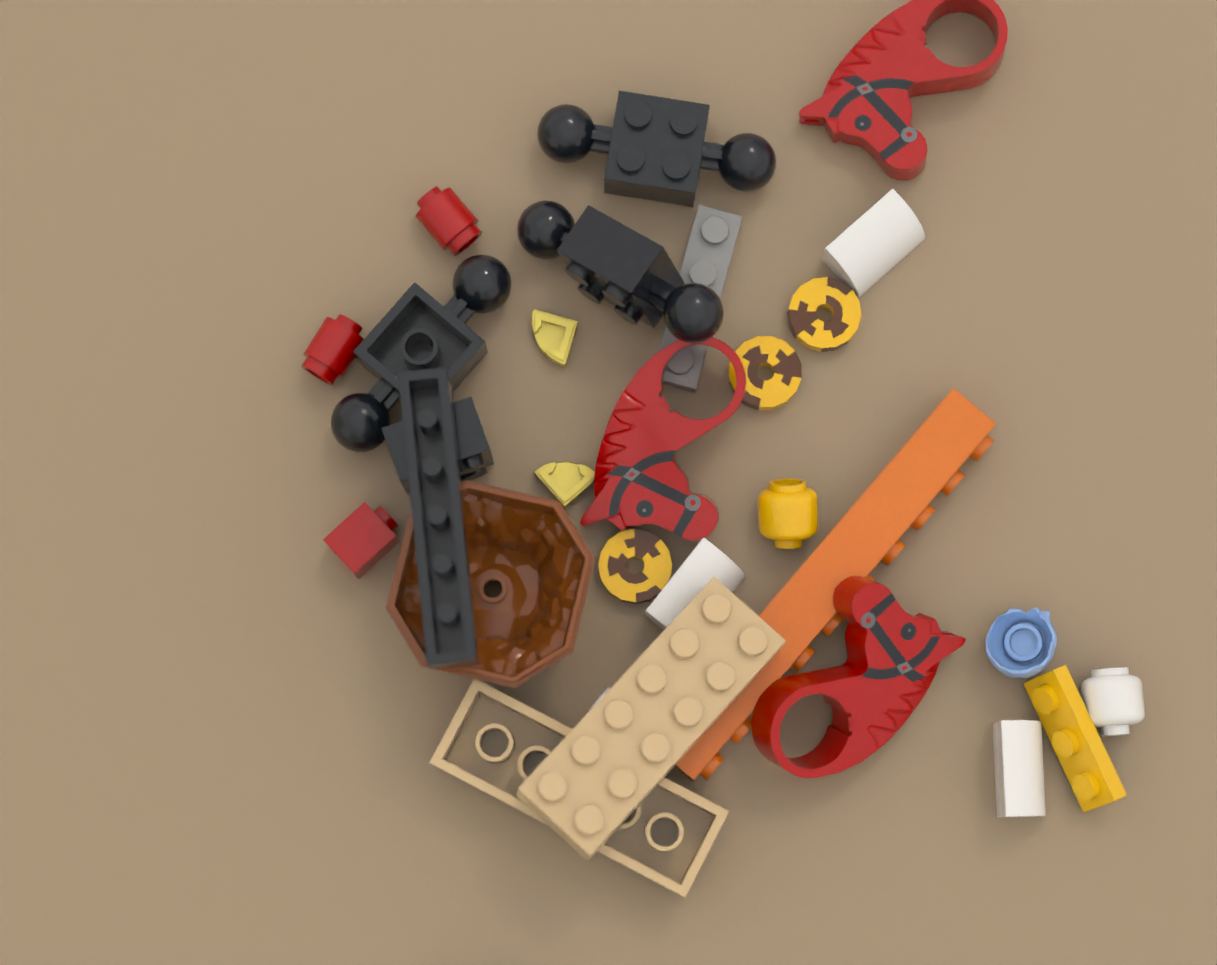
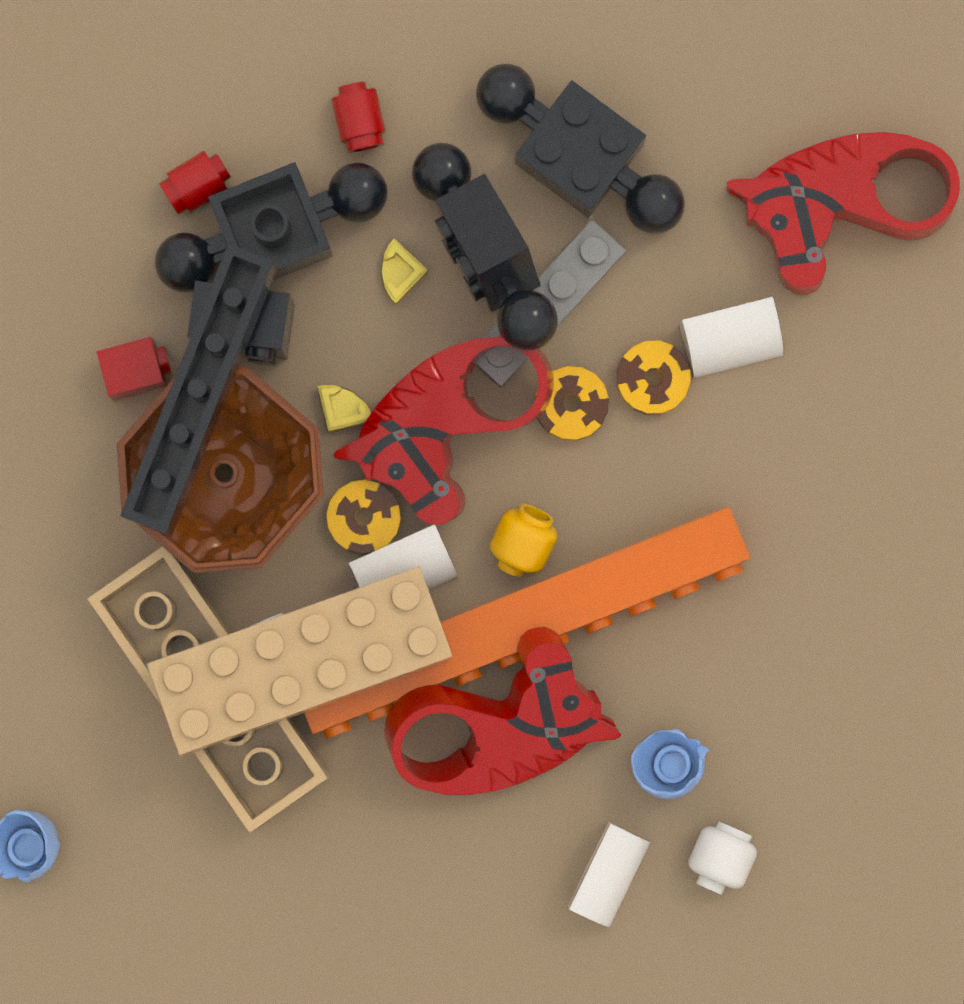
camera: 25 degrees right, 5 degrees up
(1075, 739) = (670, 873): yellow plate -> none

